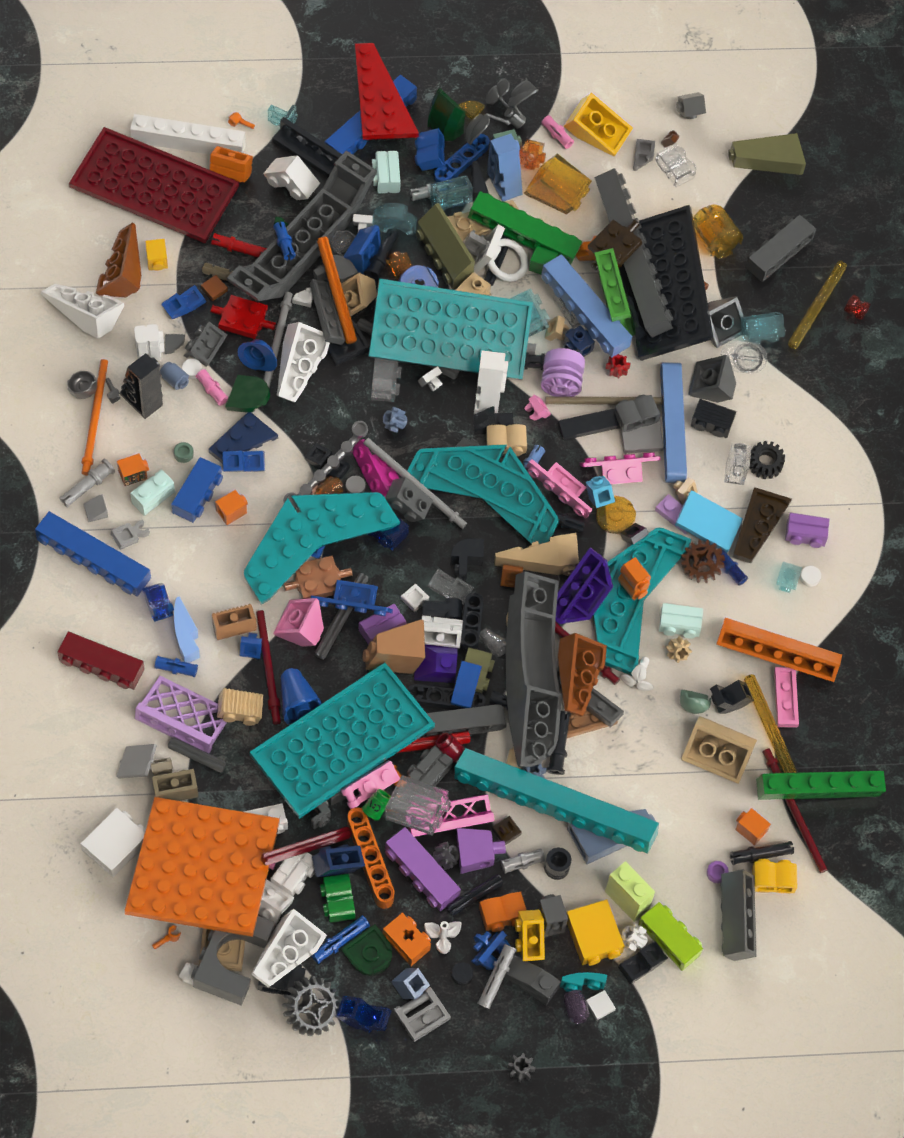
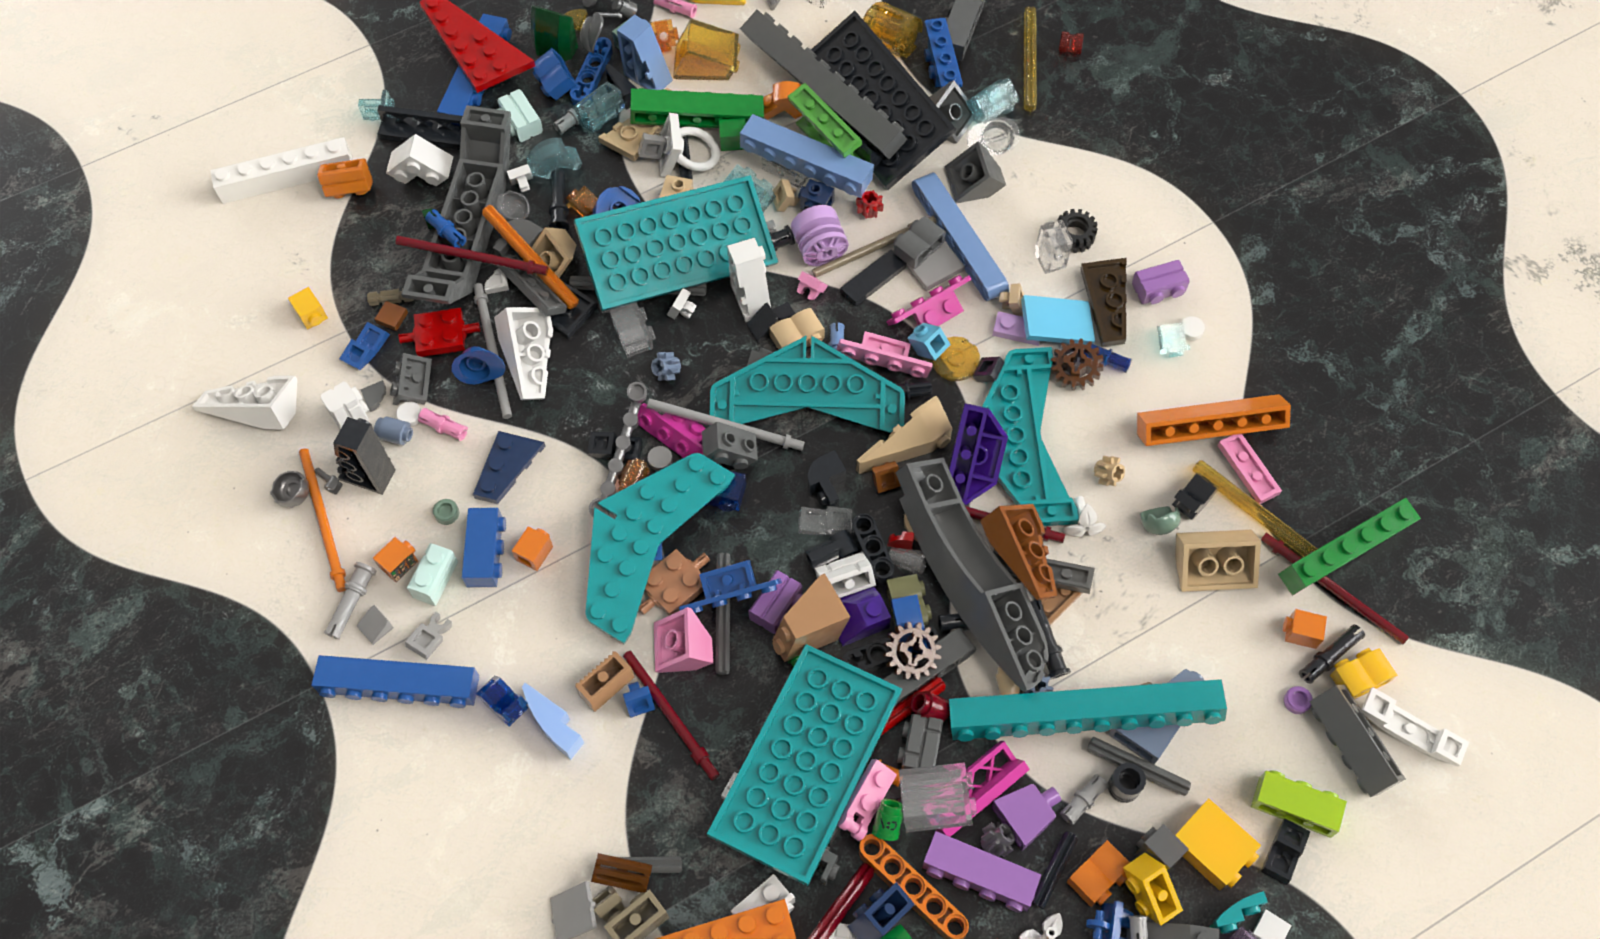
camera: 20 degrees left, 0 degrees up
(101, 661) = (467, 807): dark red brick -> none
(123, 267) = (277, 338): dark orange wedge -> none
(154, 184) = (268, 236): dark red plate -> none
(175, 725) = (590, 845): lavender fence -> none
(176, 666) = (544, 773): blue pin -> none
(178, 754) = (621, 877): none -> reddish brown tile
(236, 118) = (328, 130): orange hand -> none
(237, 245) = (395, 259): red pin -> none
(240, 706) = (663, 780): tan brick -> none
(243, 461) = (520, 489): blue slope -> none
(248, 394) = (487, 413): dark green tile -> none
(297, 696) = (724, 734): blue cone -> none
(332, 298) = (529, 266): none -> dark red bar
(364, 247) = (536, 199): blue slope -> none
(414, 597) = (792, 552): white tile -> none
(445, 247) = (623, 161): olive slope -> none
(448, 695) = (909, 661): none -> gear
(497, 627) = (902, 541): none -> red tile
(507, 830) = (1045, 771): dark brown tile -> none
(577, 861) = (1151, 771): none -> dark grey axle
(619, 238) = (801, 71): dark brown plate -> none
(629, 891) = (1230, 775): yellowish green brick -> none
(634, 579) = (1025, 416): orange brick -> none
(634, 937) = (1262, 826): white gear -> none
(680, 620) = (1092, 438): light aqua brick -> none
(713, 418) = (998, 213): black brick -> none
(744, 269) = (941, 54): none -> blue bracket
(784, 928) = (1413, 731): none -> white slope

